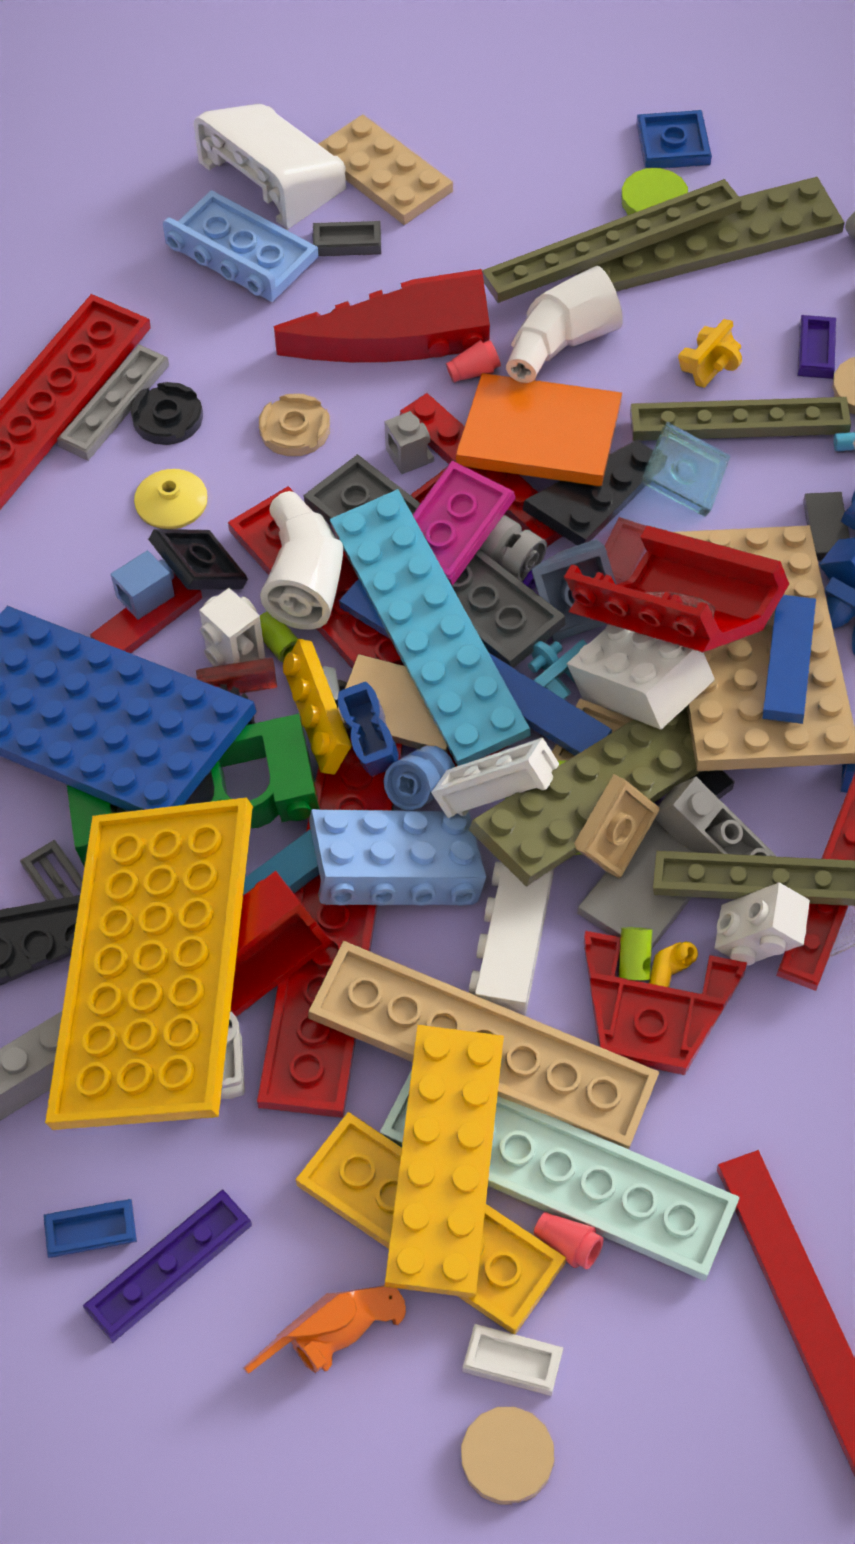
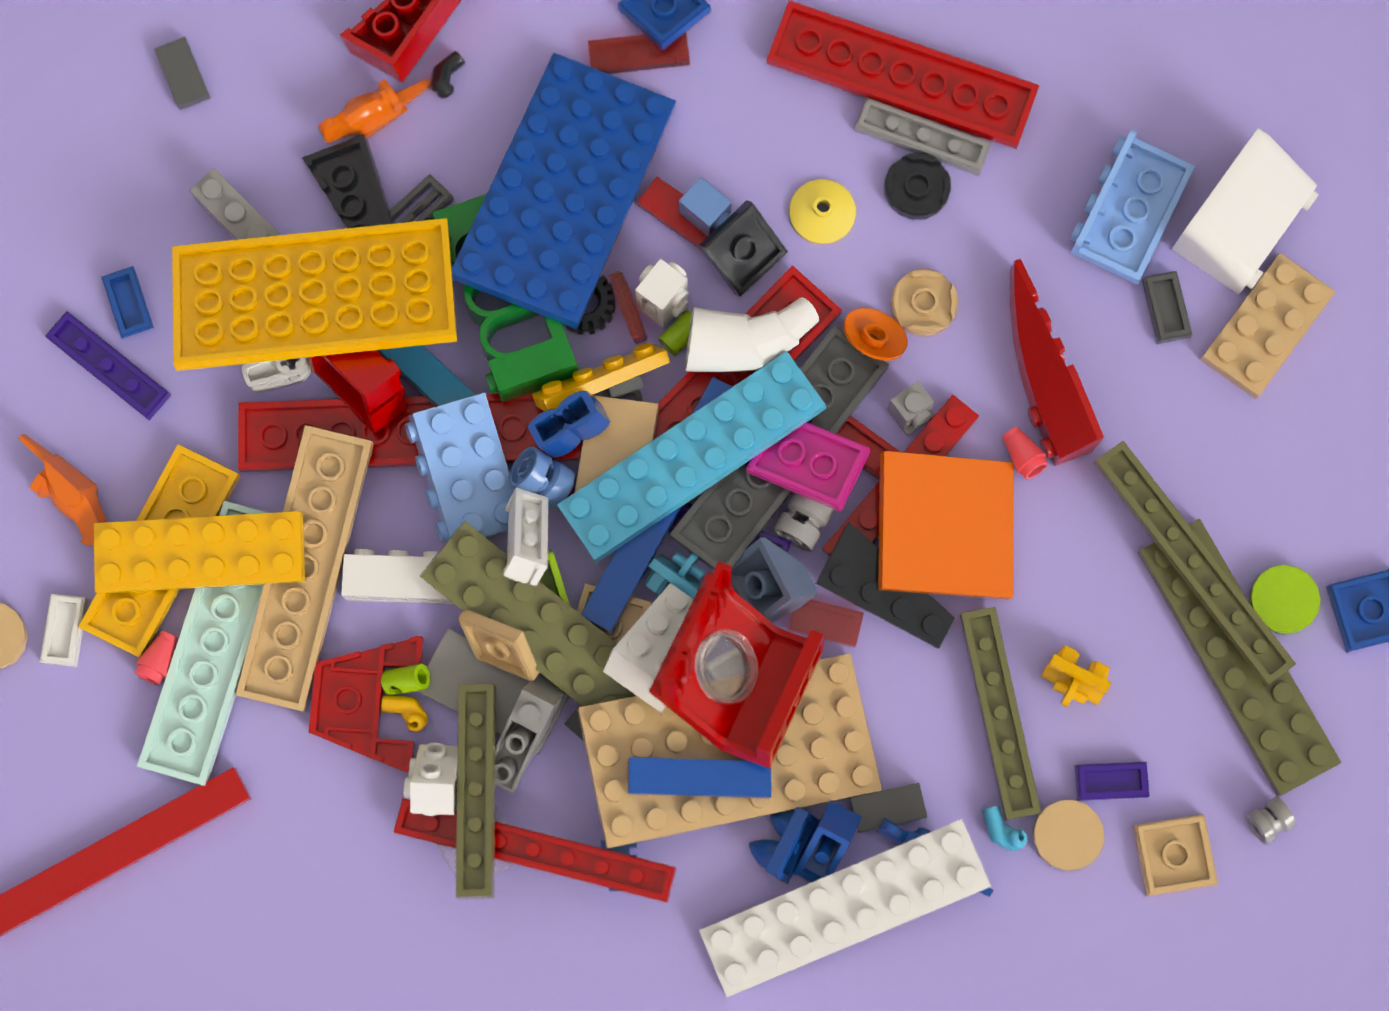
camera: 80 degrees right, 20 degrees up
(322, 461) = (875, 334): none -> orange dish
(562, 317) = (1081, 525): white piece -> none
(686, 469) = (925, 667): clear light blue tile -> none

